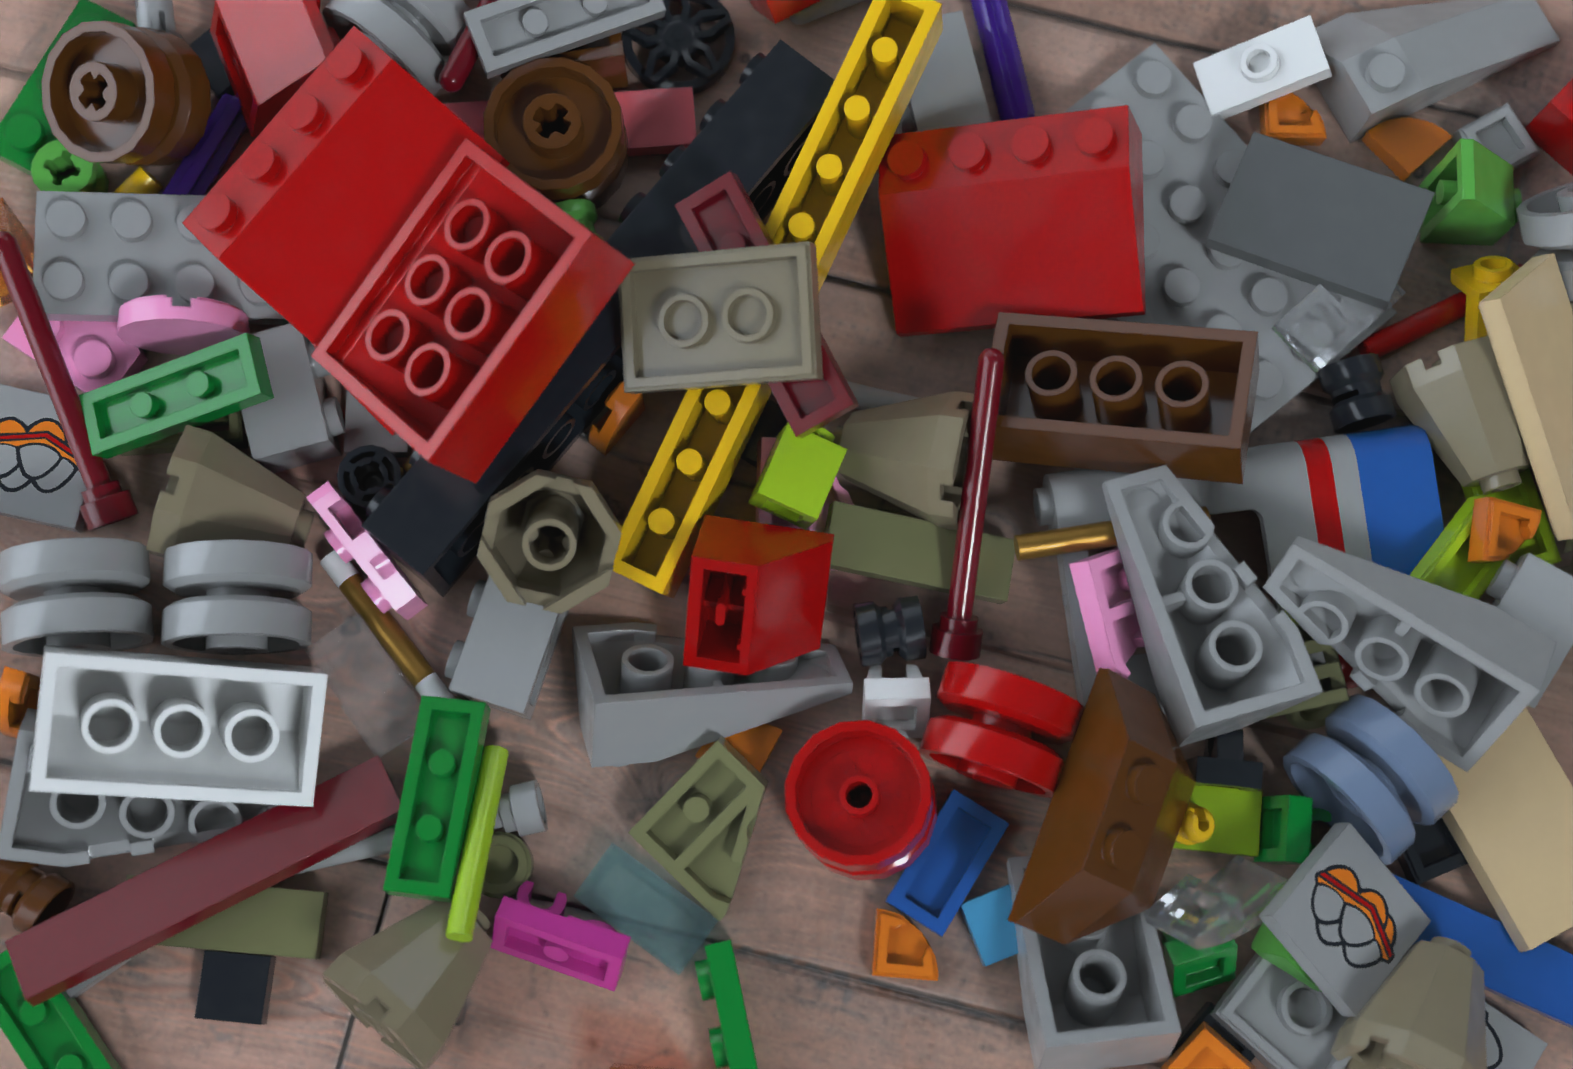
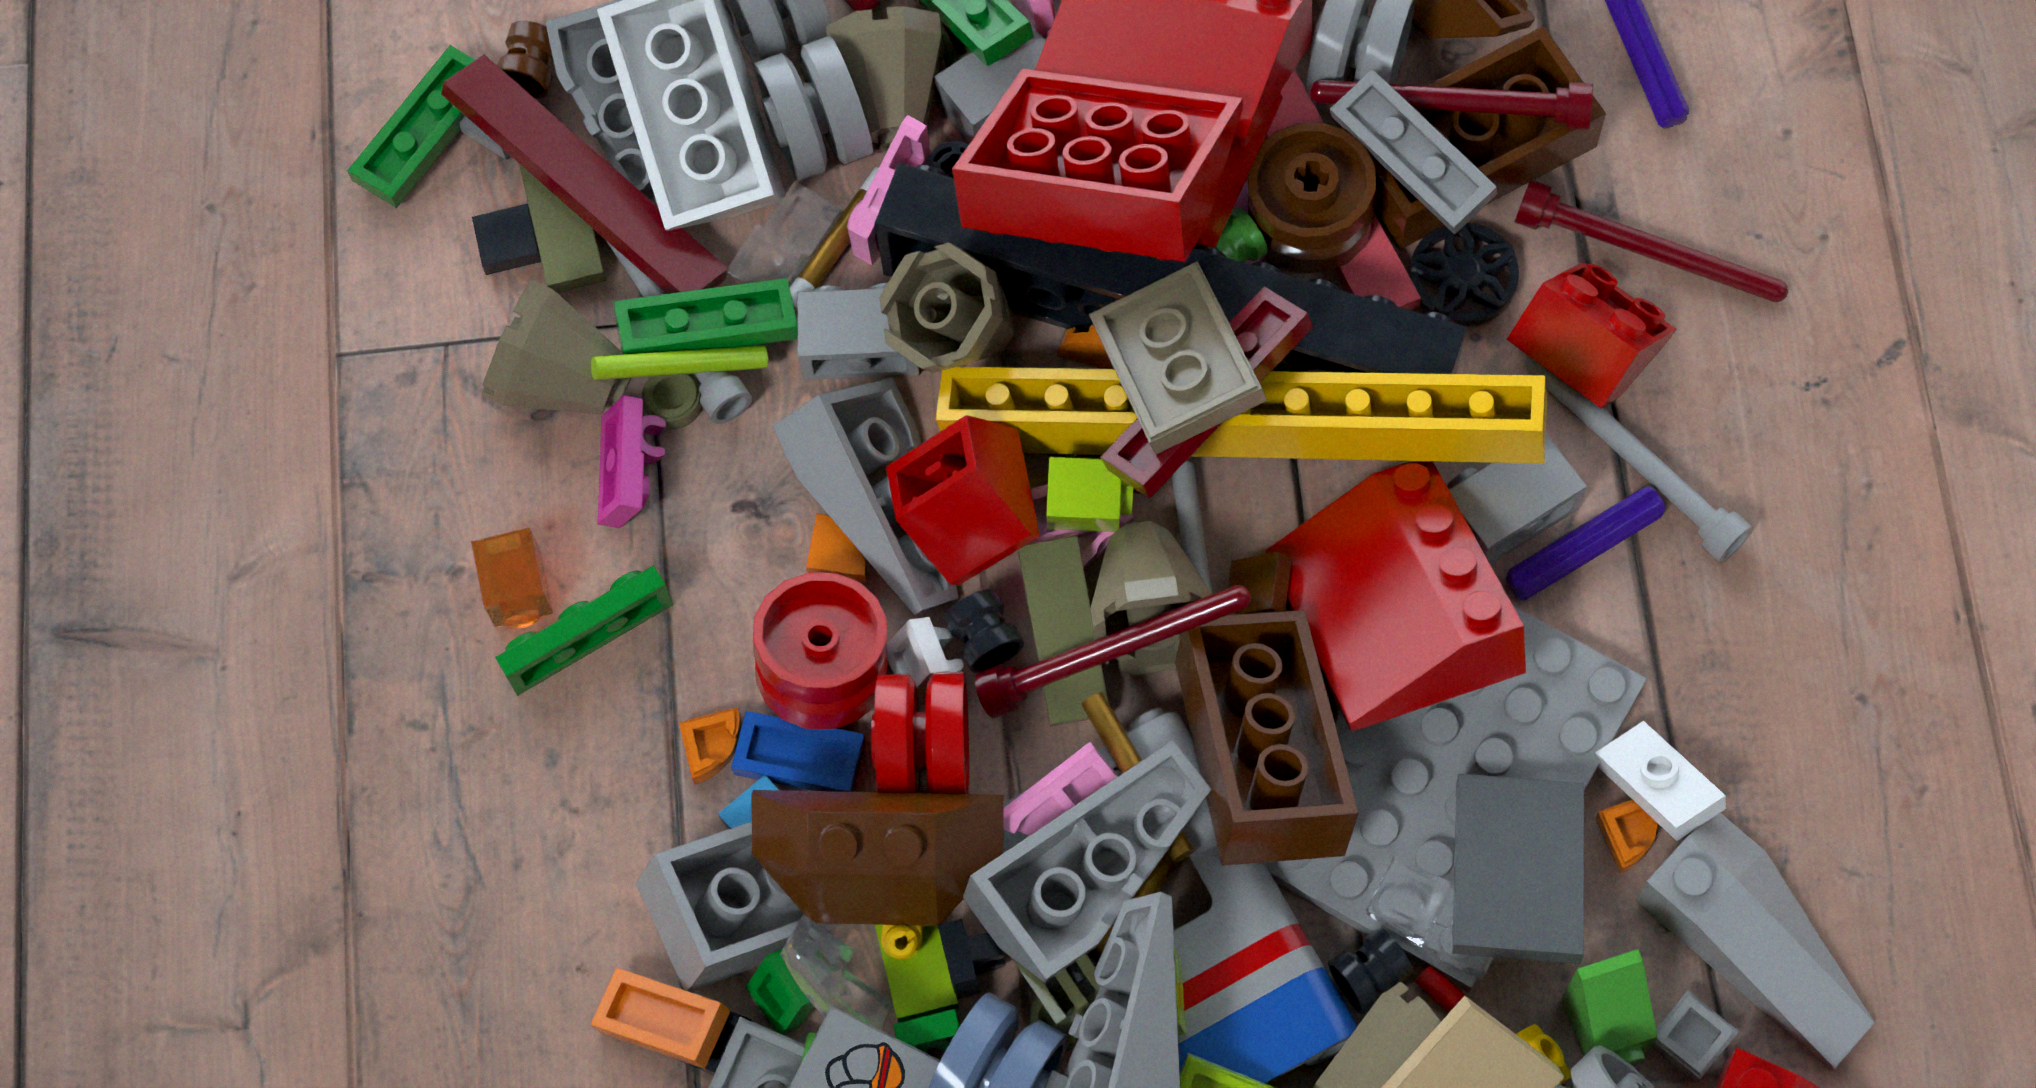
camera: 80 degrees right, 10 degrees down
(646, 908) = (675, 522): clear light blue tile -> none
(706, 825) = (758, 541): olive wing -> none
(939, 352) = (1266, 580): none -> reddish brown tile
(1405, 144) = (1657, 947): orange tile -> none

